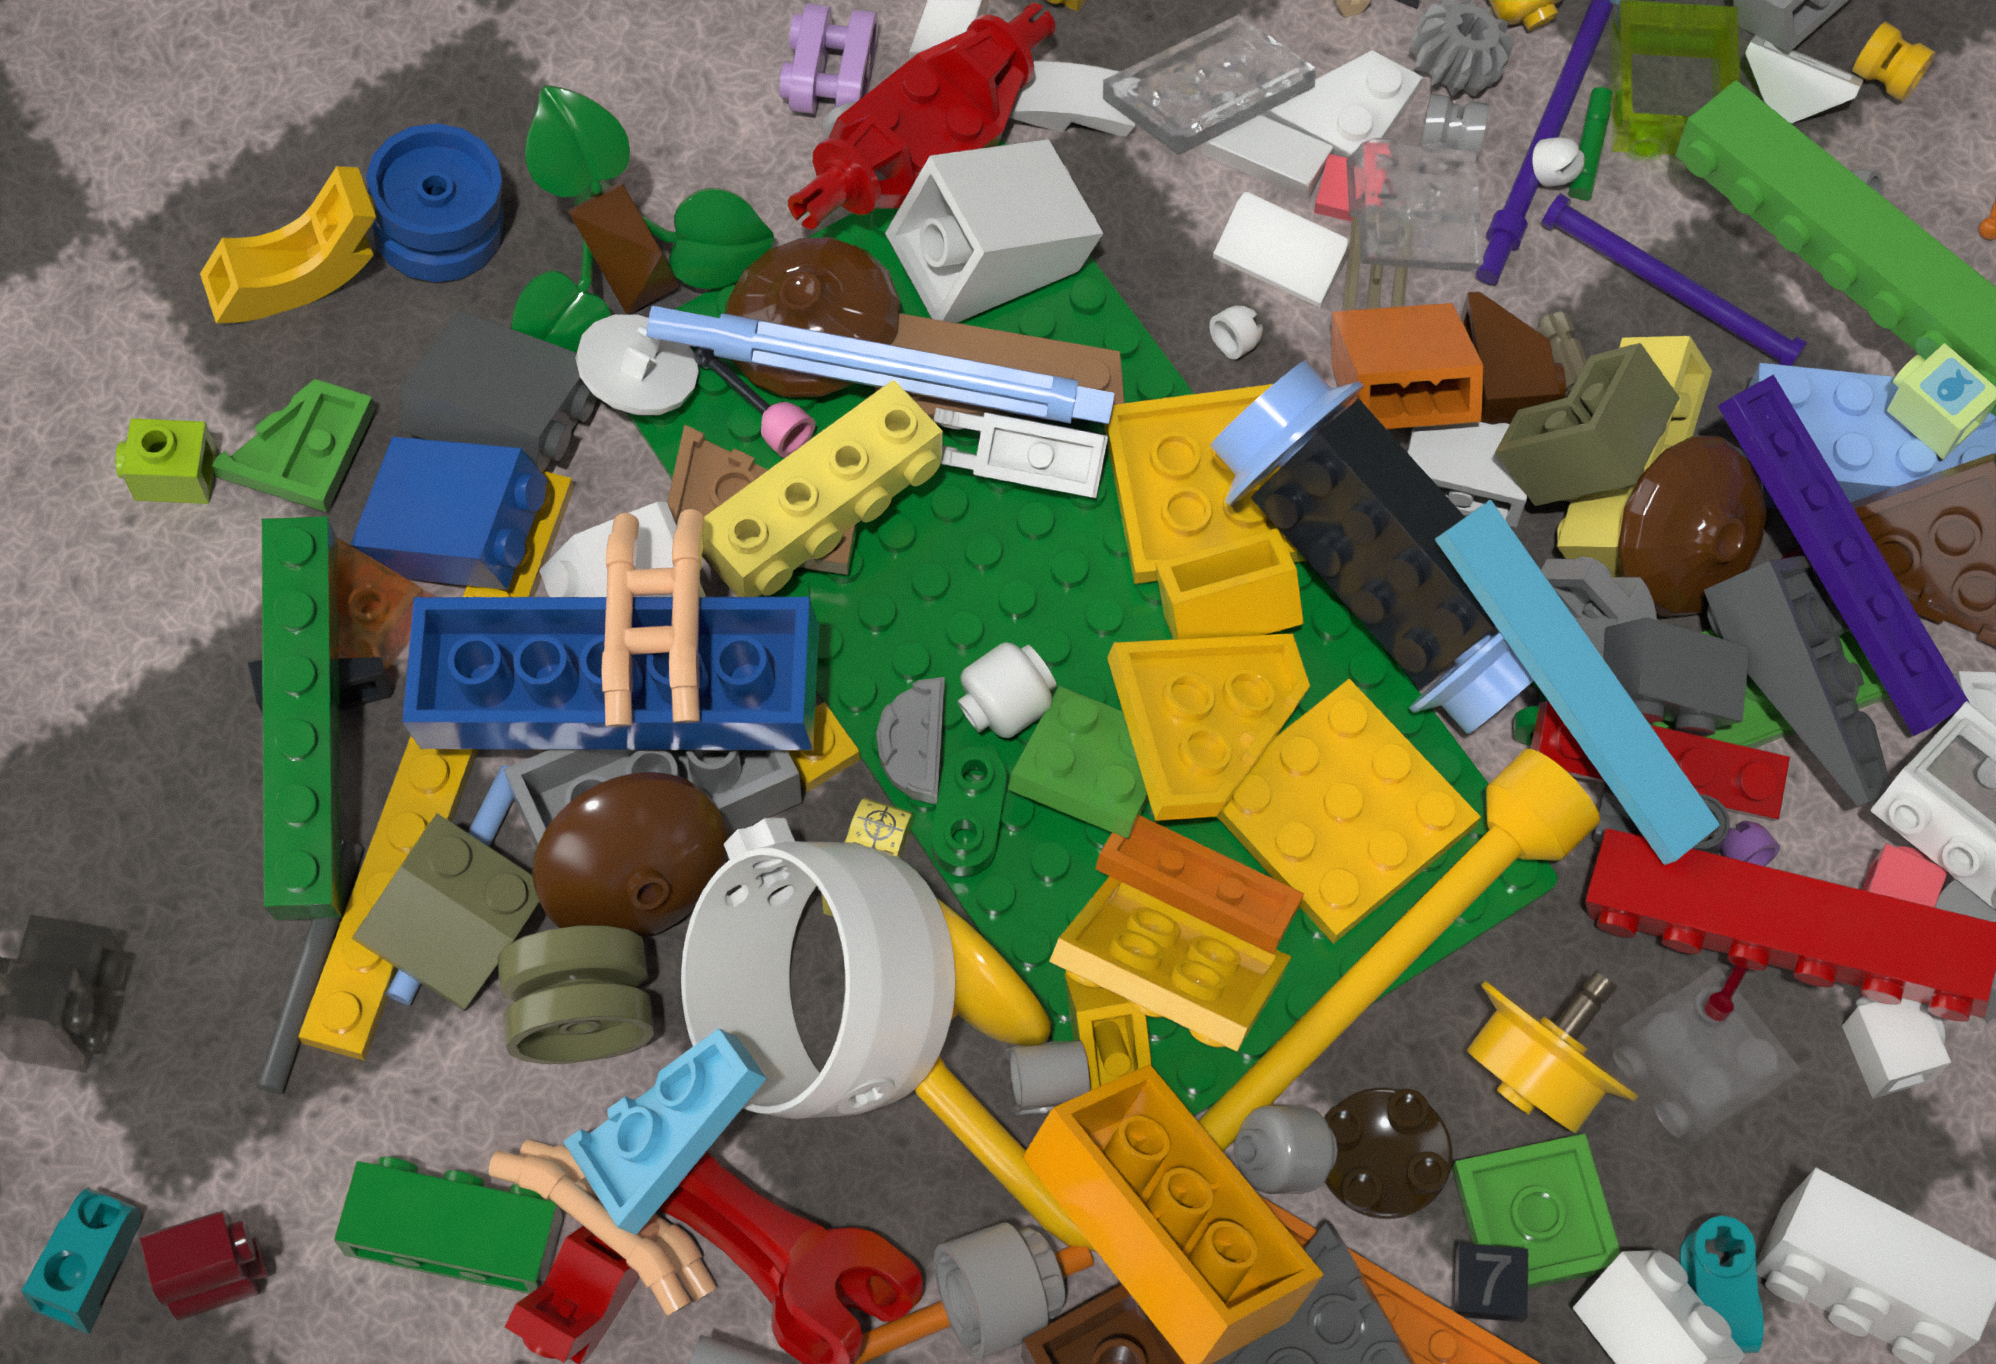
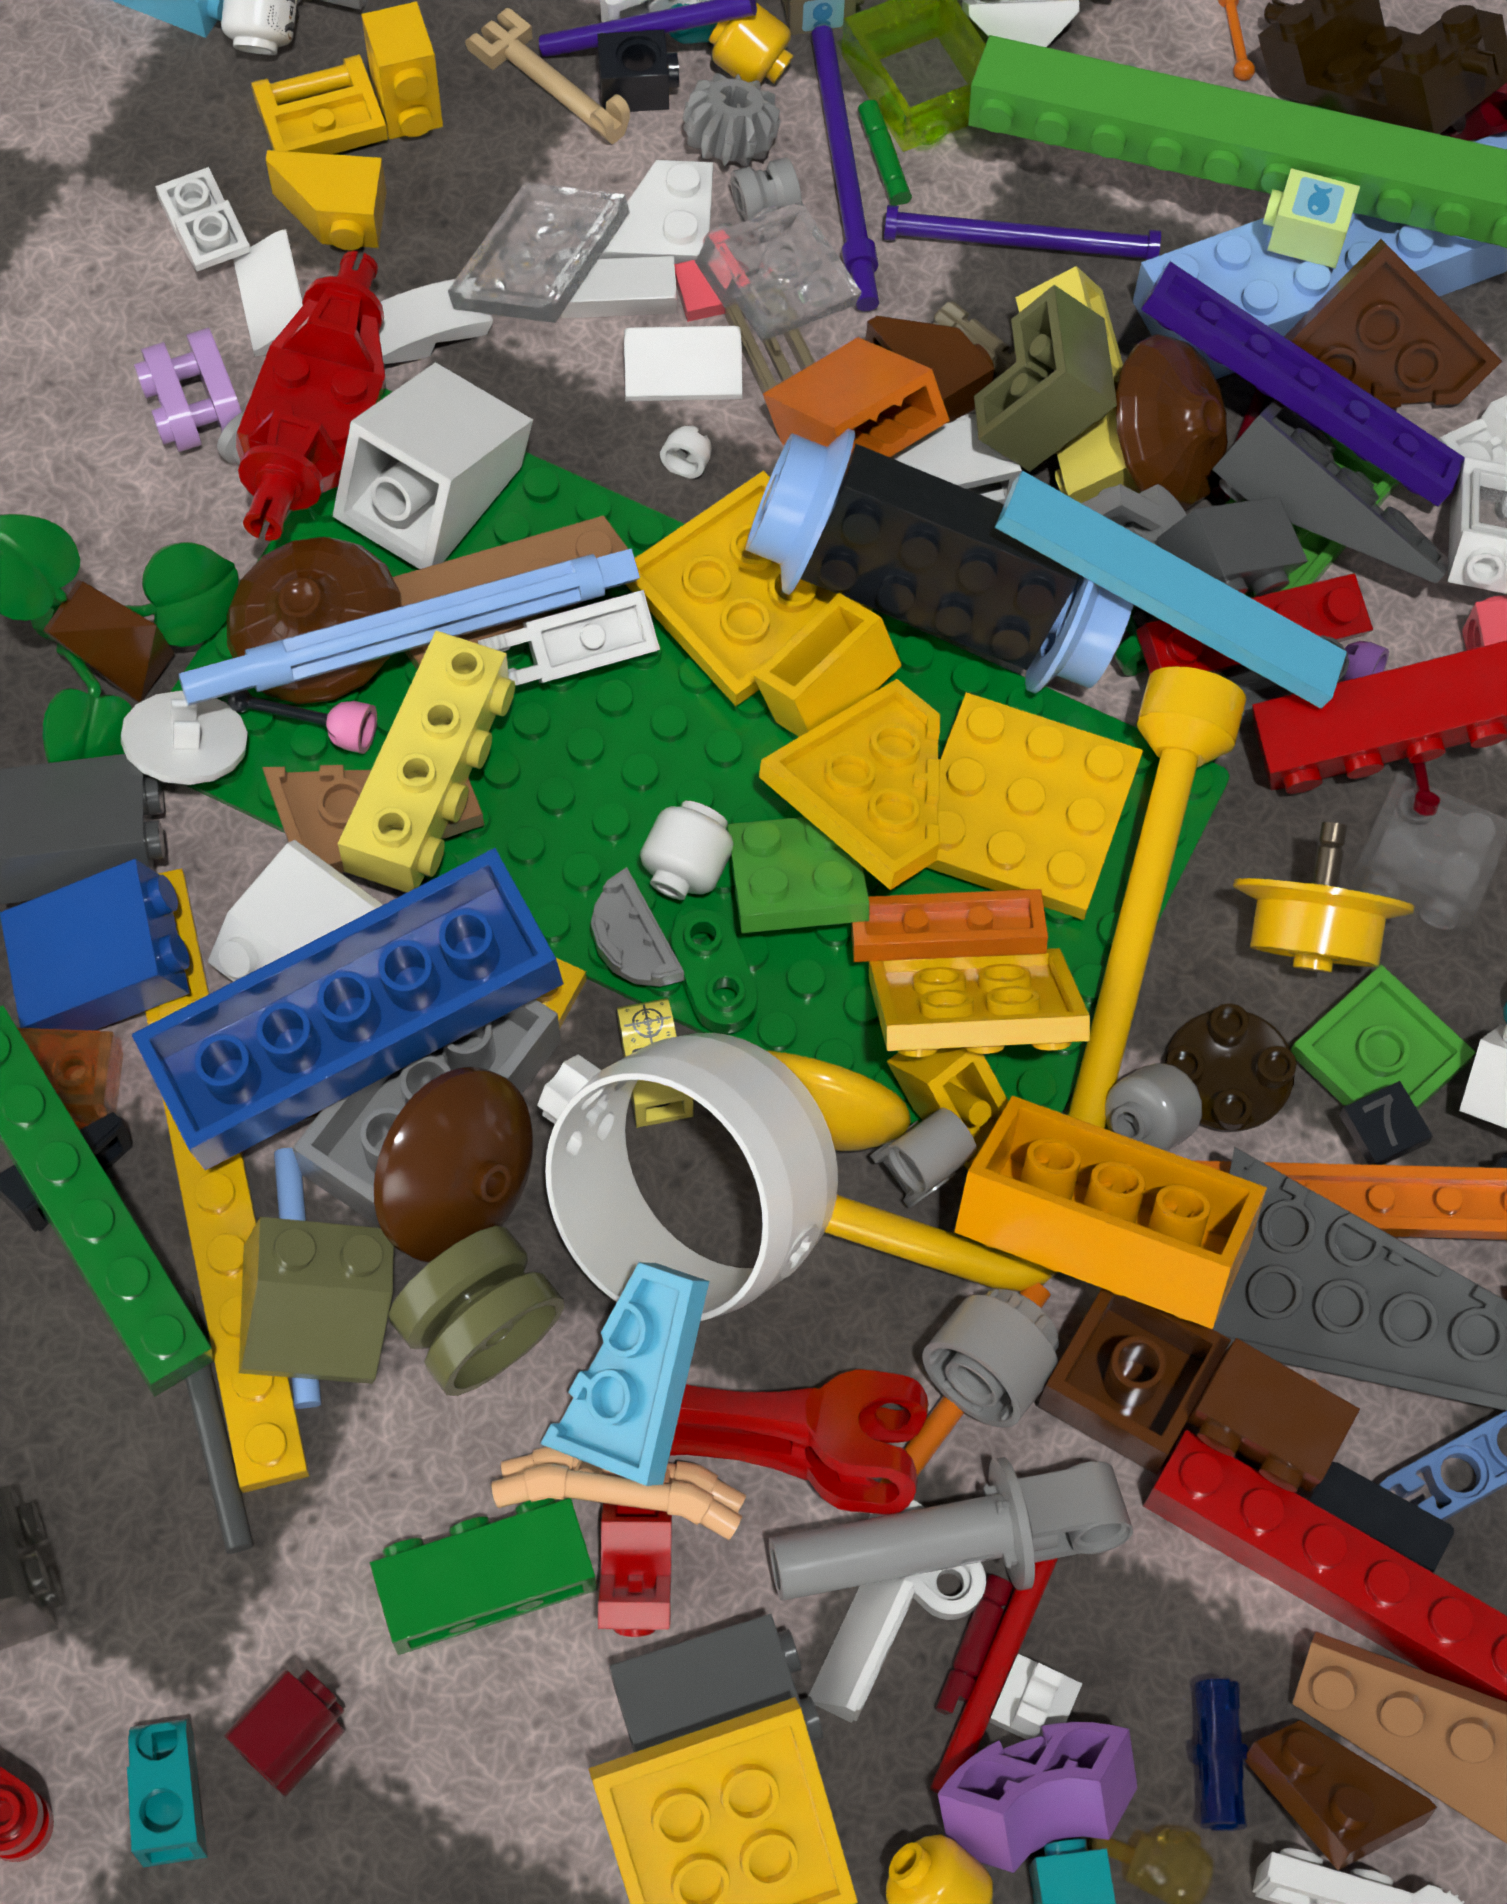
camera: 30 degrees left, 0 degrees up
(677, 640) = (355, 970): light nougat piece -> none
(1557, 161) = (869, 178): white hinge -> none

